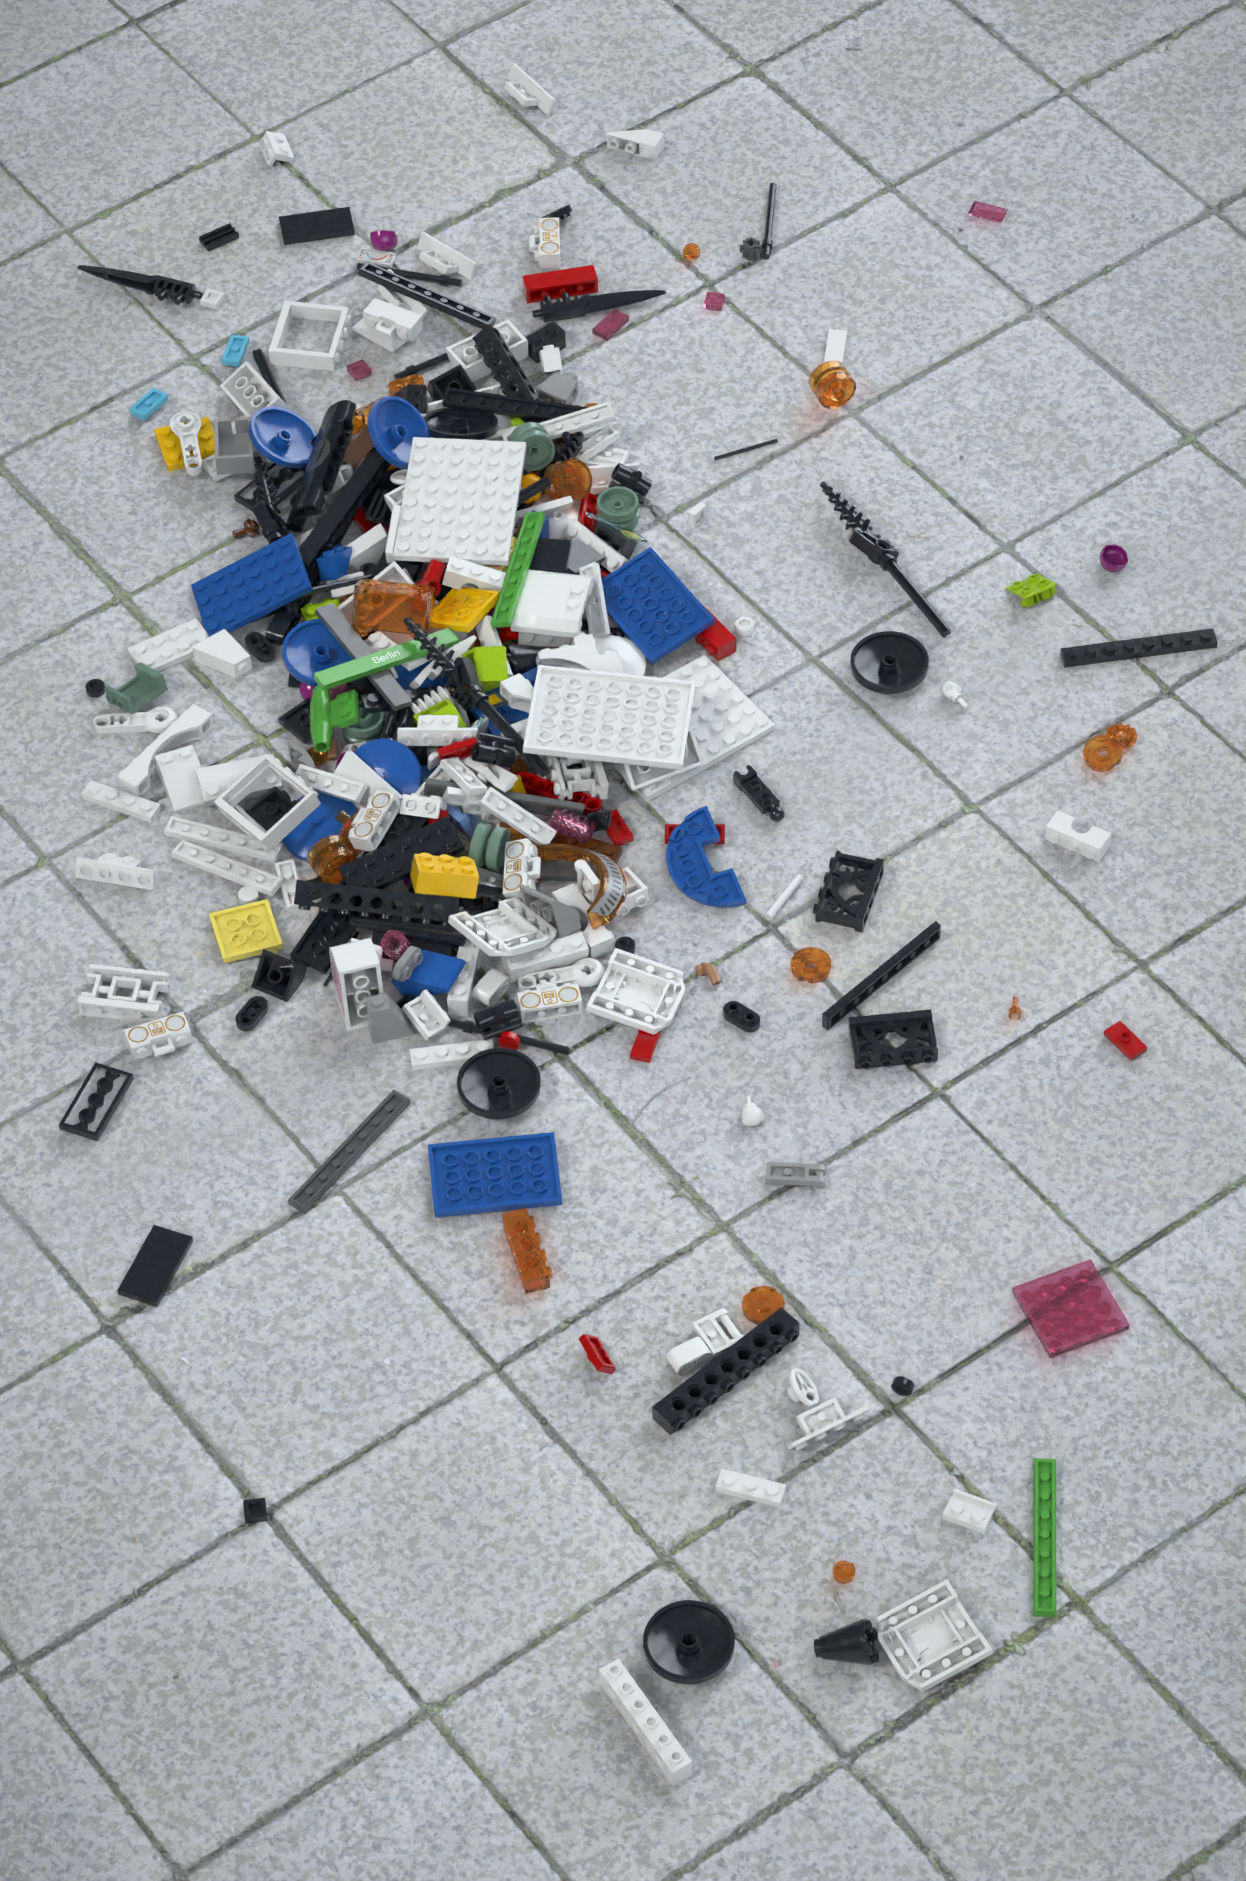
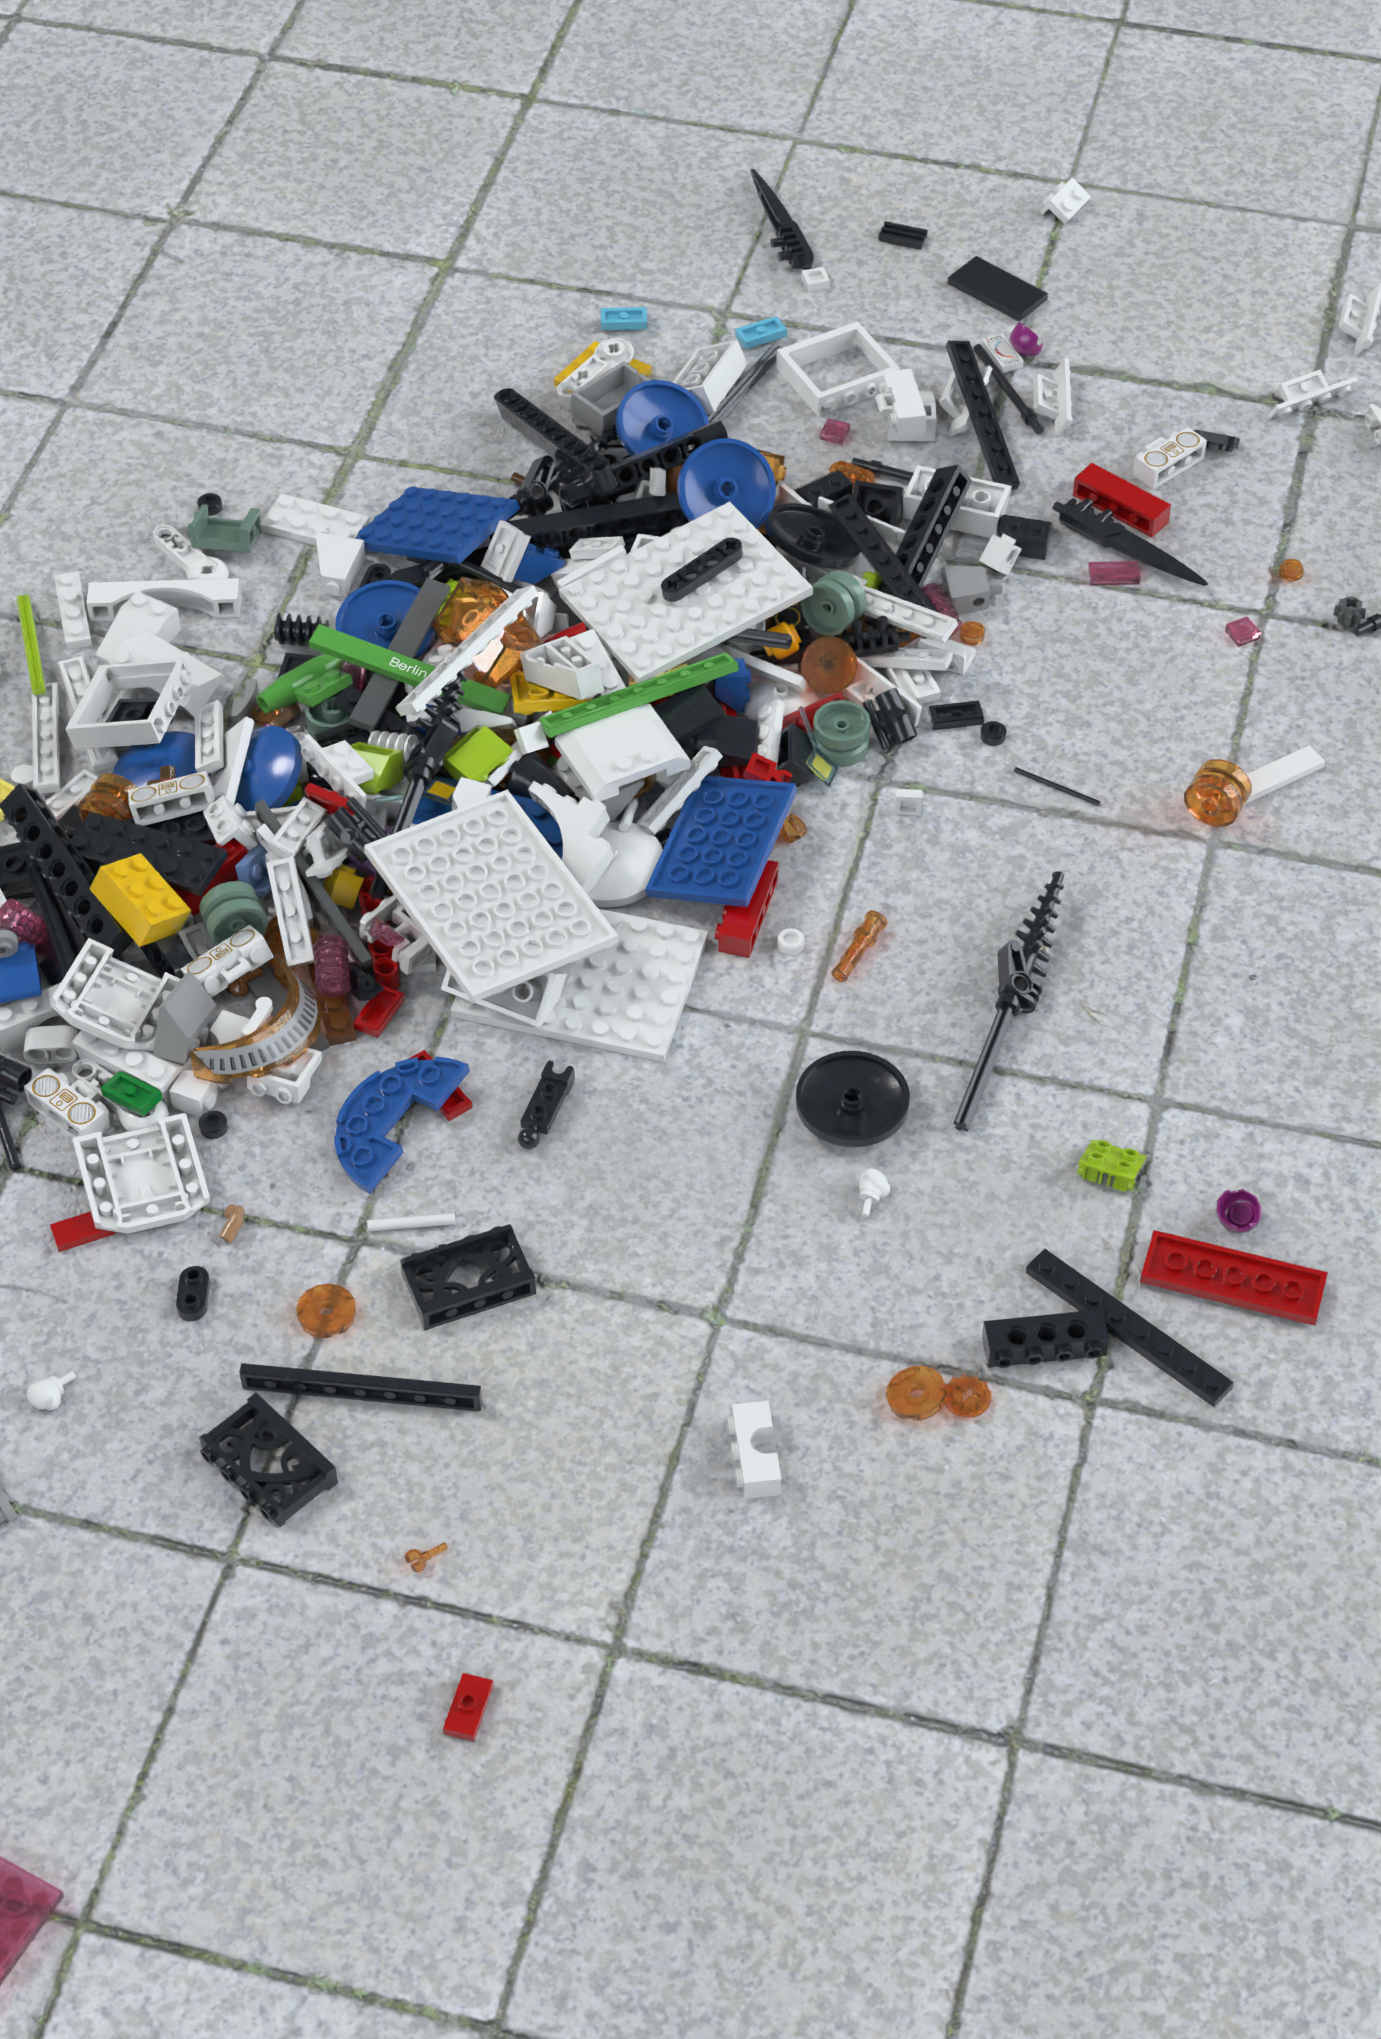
camera: 50 degrees right, 0 degrees up
(135, 834) = (31, 644): none -> lime axle
(253, 487) = (556, 440): none -> black beam
(266, 700) = (295, 630): none -> black piece
(323, 564) = (505, 551): none -> white plate
(351, 461) = (657, 481): none -> white tile
(362, 524) = (594, 547): none -> white plate
(419, 616) = (462, 655): none -> white plate
(460, 479) = (678, 585): none -> black beam
(466, 587) = (563, 668): none -> white wedge
(499, 635) = (531, 738): none -> white tile
(560, 153) = (1307, 390): none -> white bracket
(576, 964) = (131, 1093): none -> green plate
(580, 784) = (384, 933): none -> clear pink slope
(620, 555) = (764, 769): none -> red plate
(651, 458) = (959, 715): none -> black tile
(679, 450) = (993, 733): none -> black tile
(776, 593) = (864, 937): none -> clear orange pin
(1118, 682) = (1056, 1328): none -> black brick
(1150, 587) = (1234, 1277): none -> red plate

